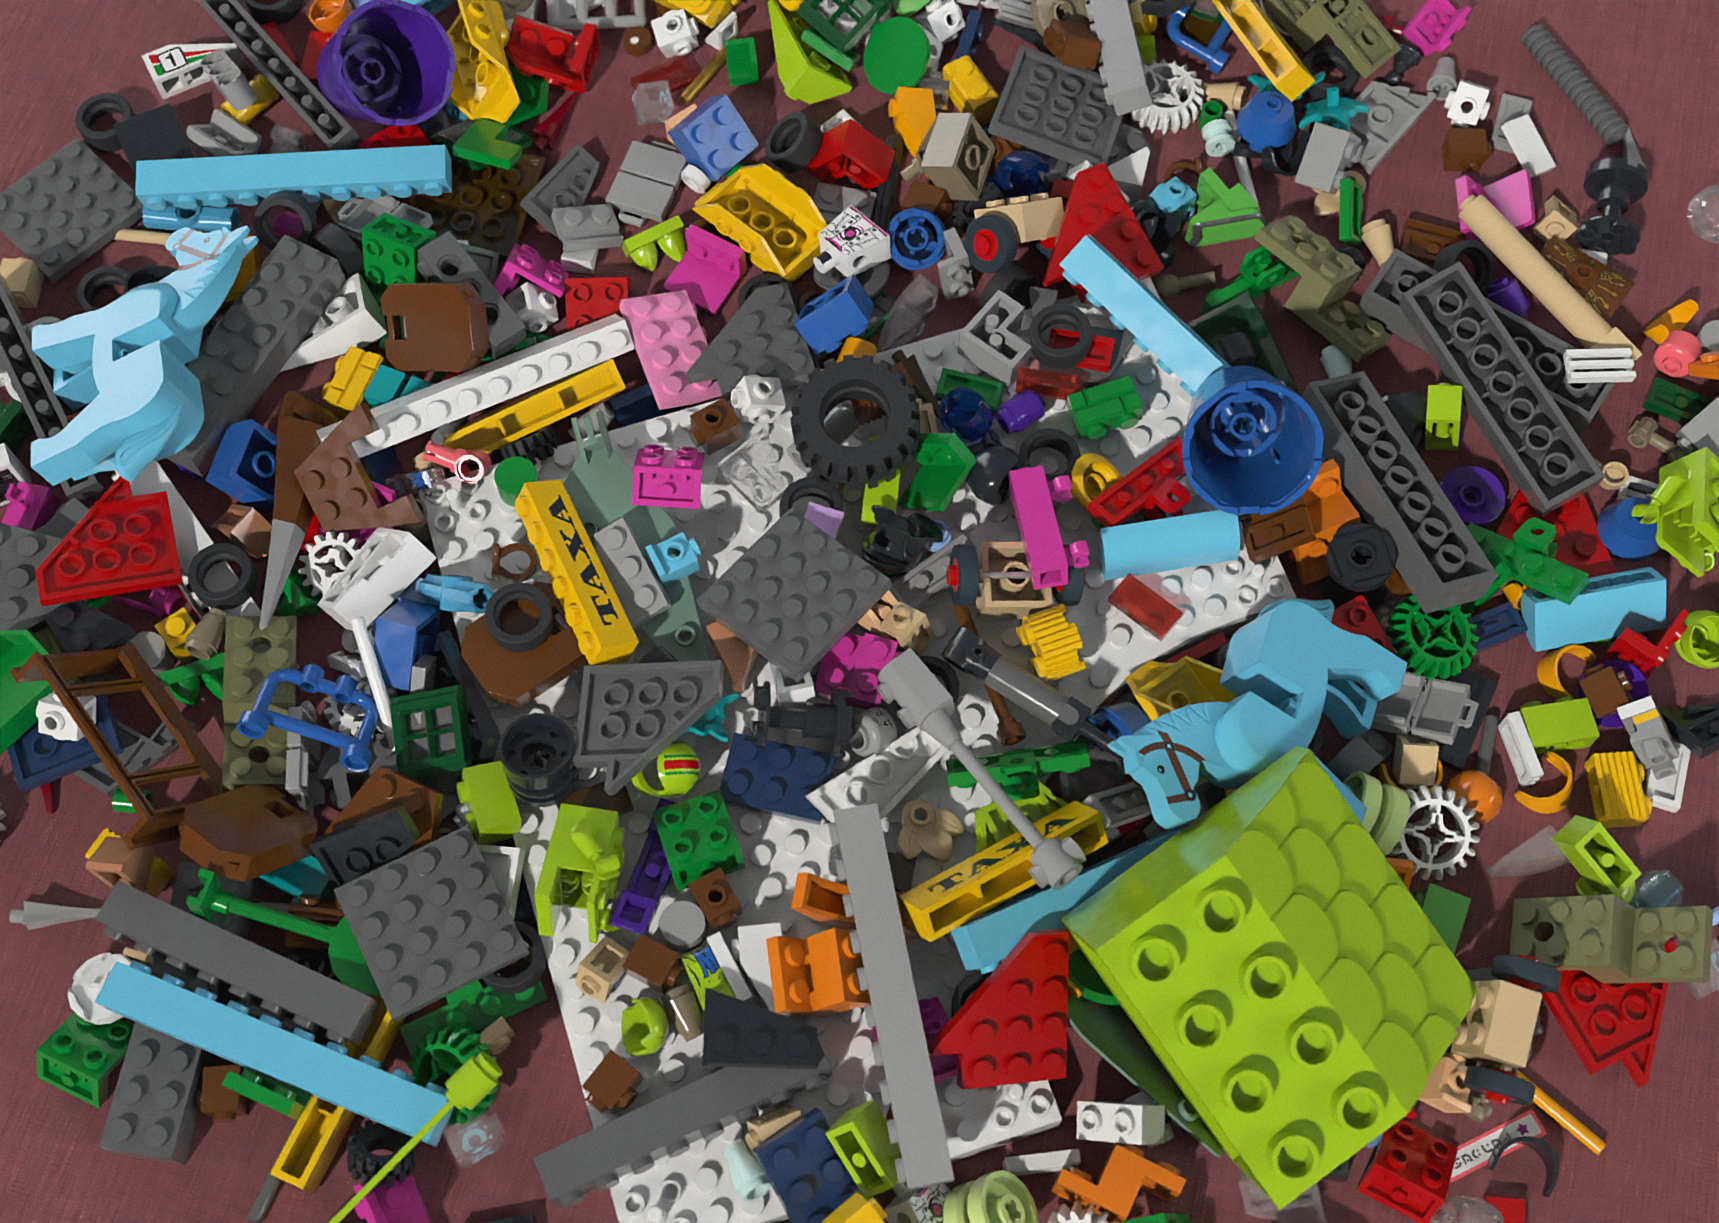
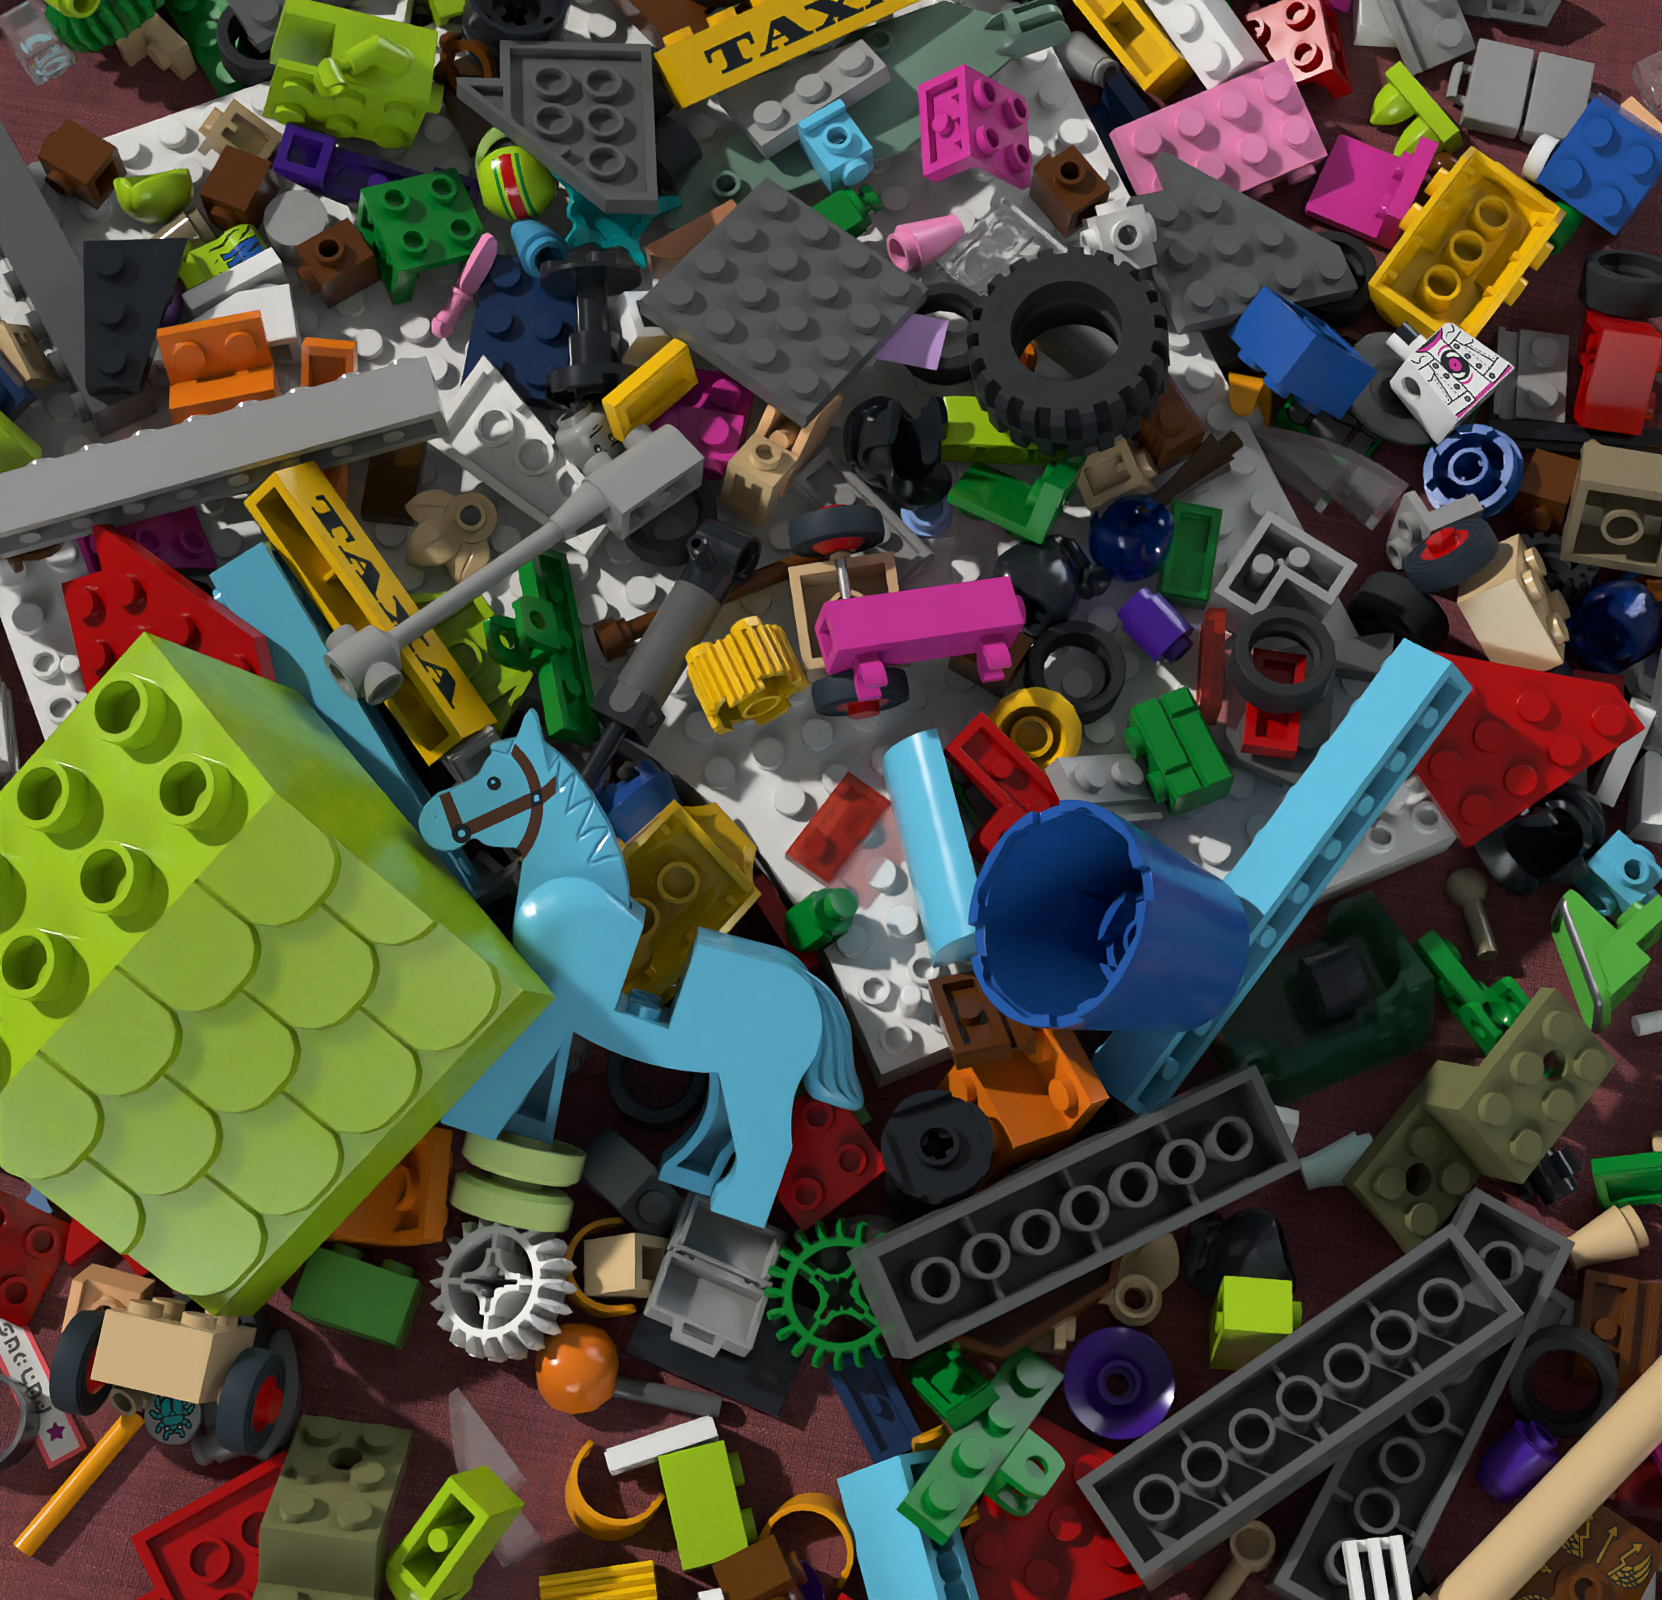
camera: 80 degrees right, 5 degrees up
(569, 783) = (452, 43): none -> reddish brown piece
(714, 559) = (850, 210): none -> green arm
(726, 755) = (537, 245): none -> dark azure cone
(743, 518) = (922, 242): none -> bright pink cone
(747, 815) = (466, 285): none -> bright pink piece
(853, 682) = (650, 389): none -> yellow tile
(1134, 448) = (1108, 781): none -> light grey plate
(1204, 621) = (820, 919): none -> green arm

